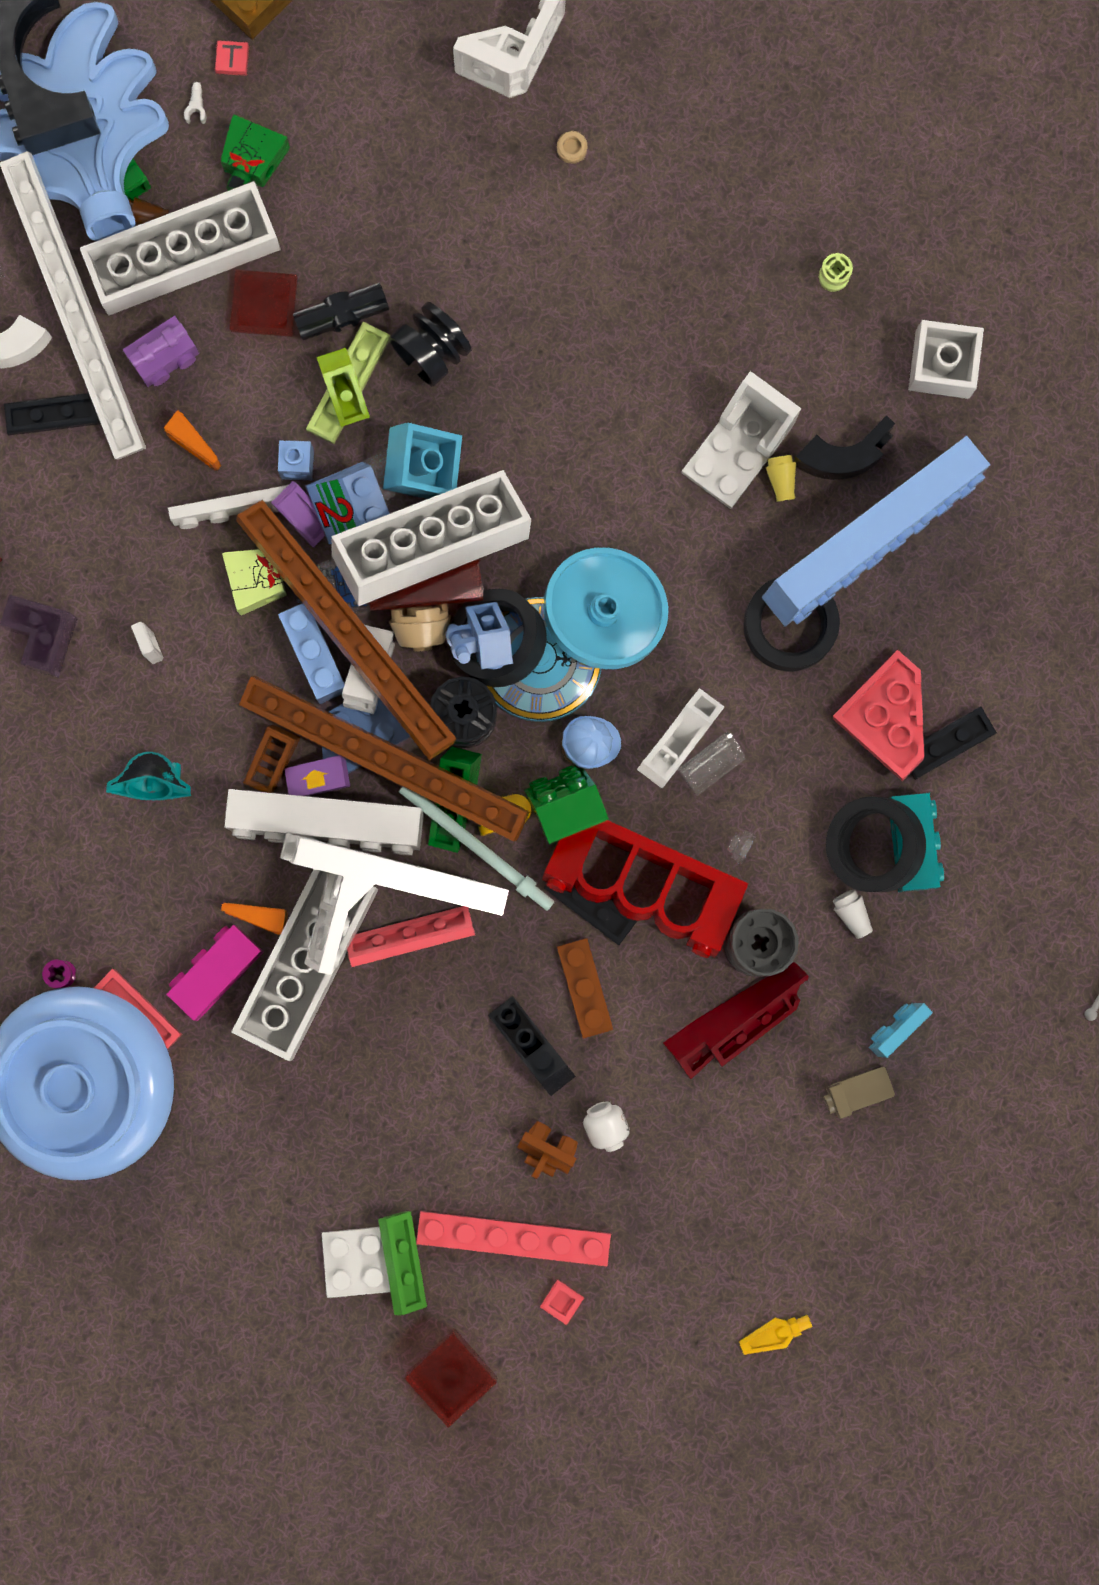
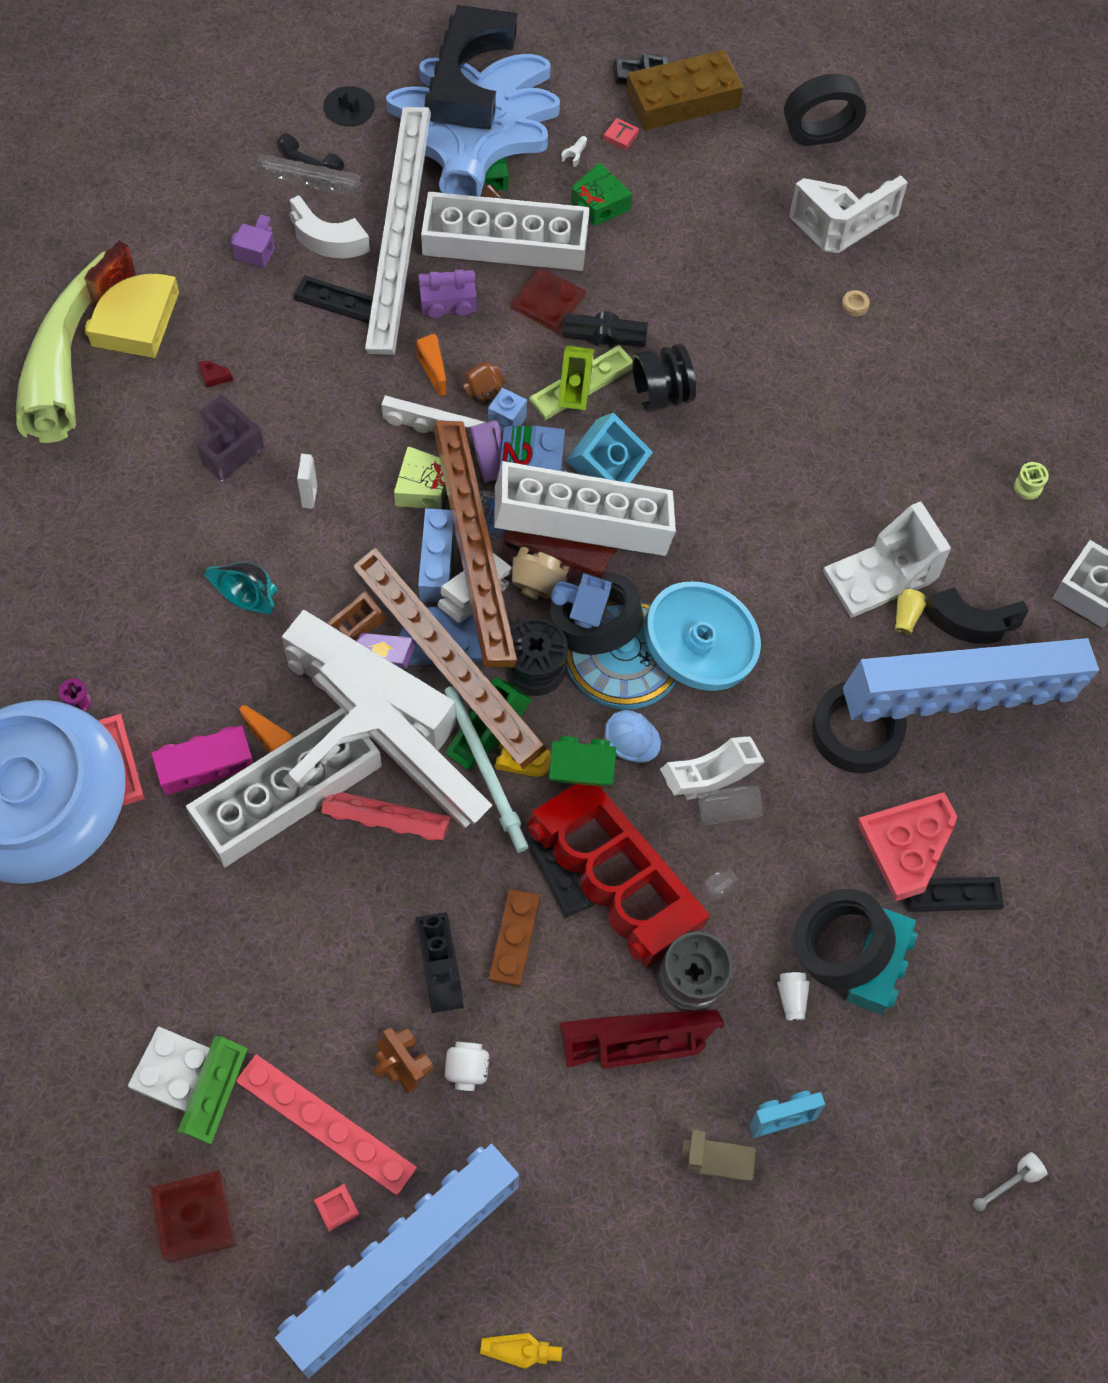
camera: 30 degrees right, 20 degrees down
(253, 436) = (484, 381): none -> dark orange head
(642, 1324) = (398, 1260): none -> light blue brick

